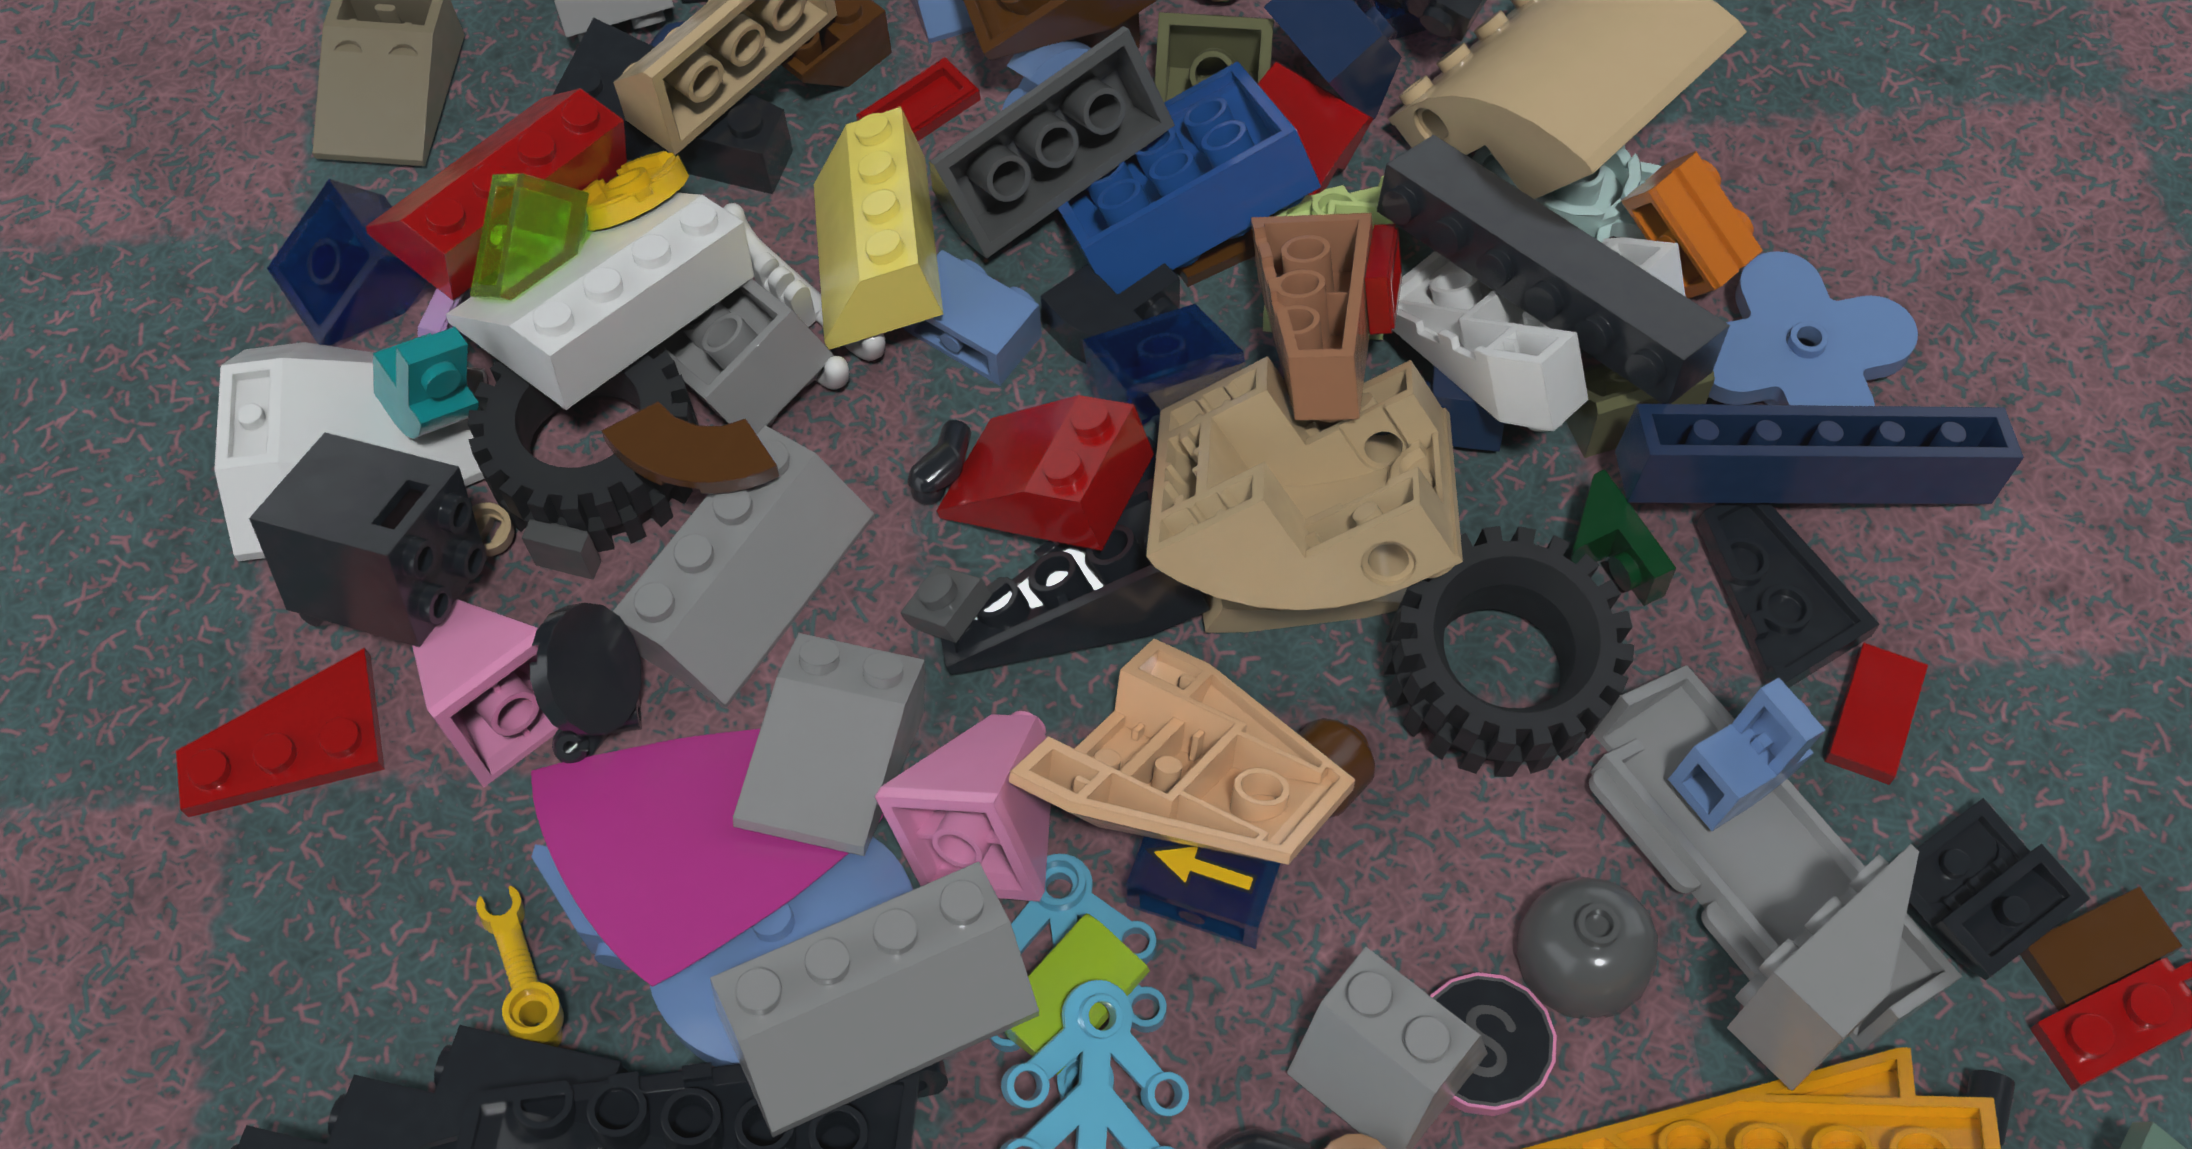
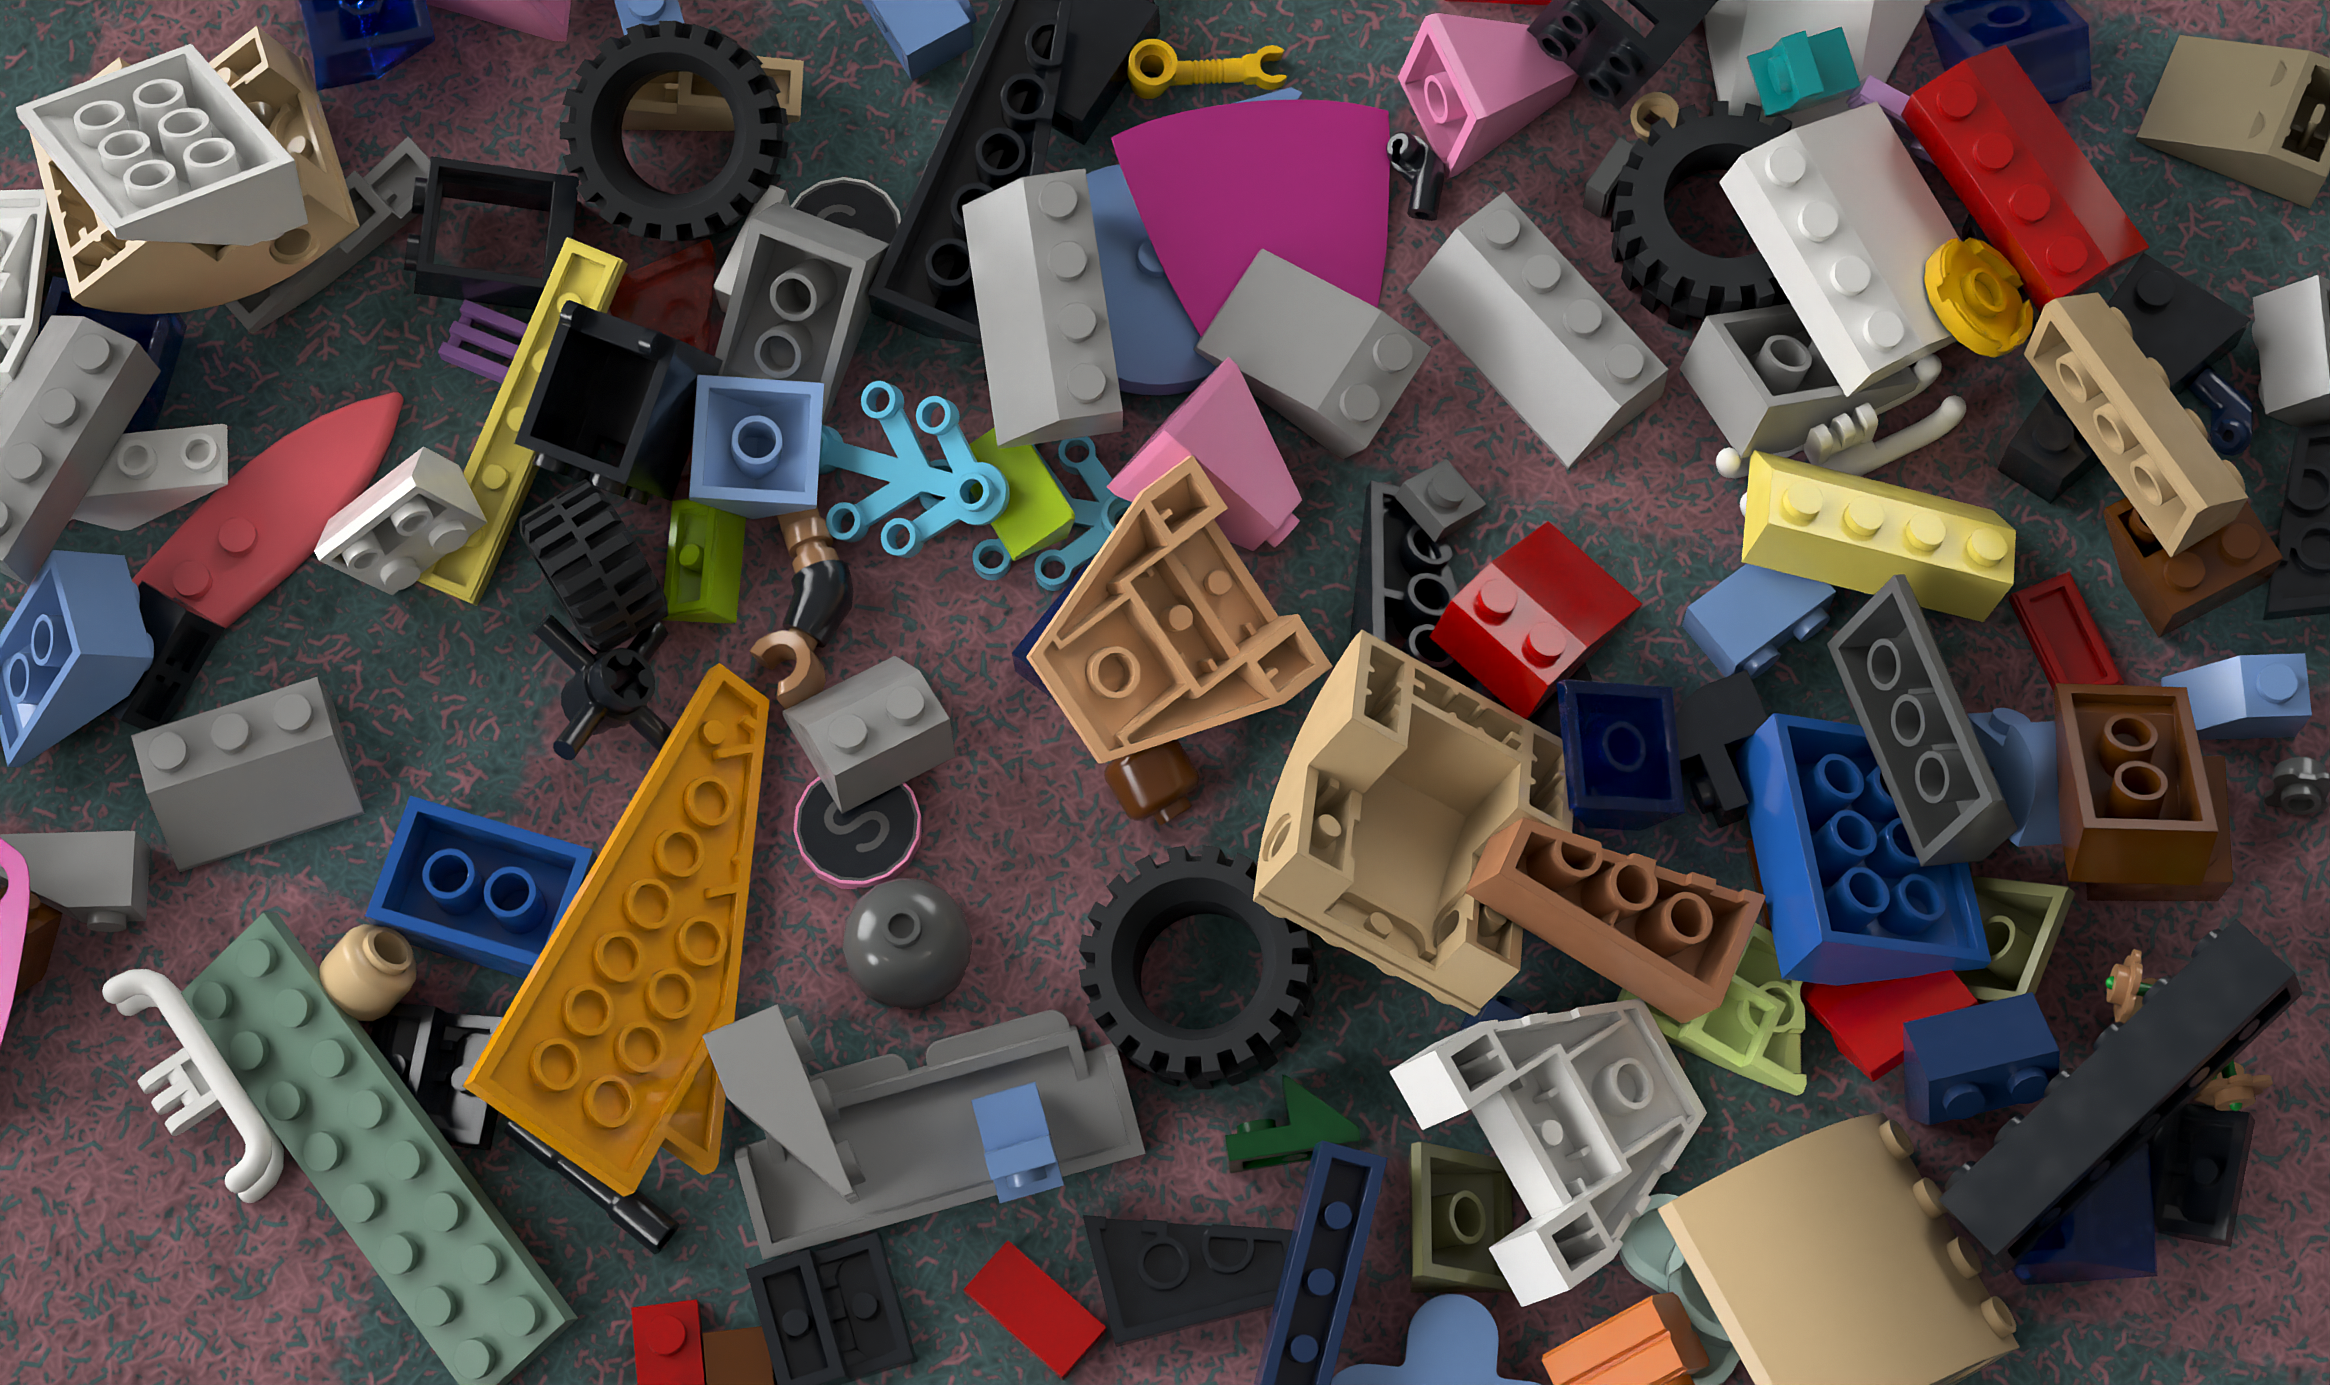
camera: 110 degrees right, 10 degrees up
(526, 234) = (1921, 176): clear neon green slope -> none
(586, 669) = (1446, 156): black tile -> none
(689, 454) = (1638, 282): reddish brown tile -> none
(941, 464) = (1595, 538): black arm -> none
(1383, 278) = (1643, 997): red tile -> none
(1552, 269) = (1582, 1142): black brick -> none

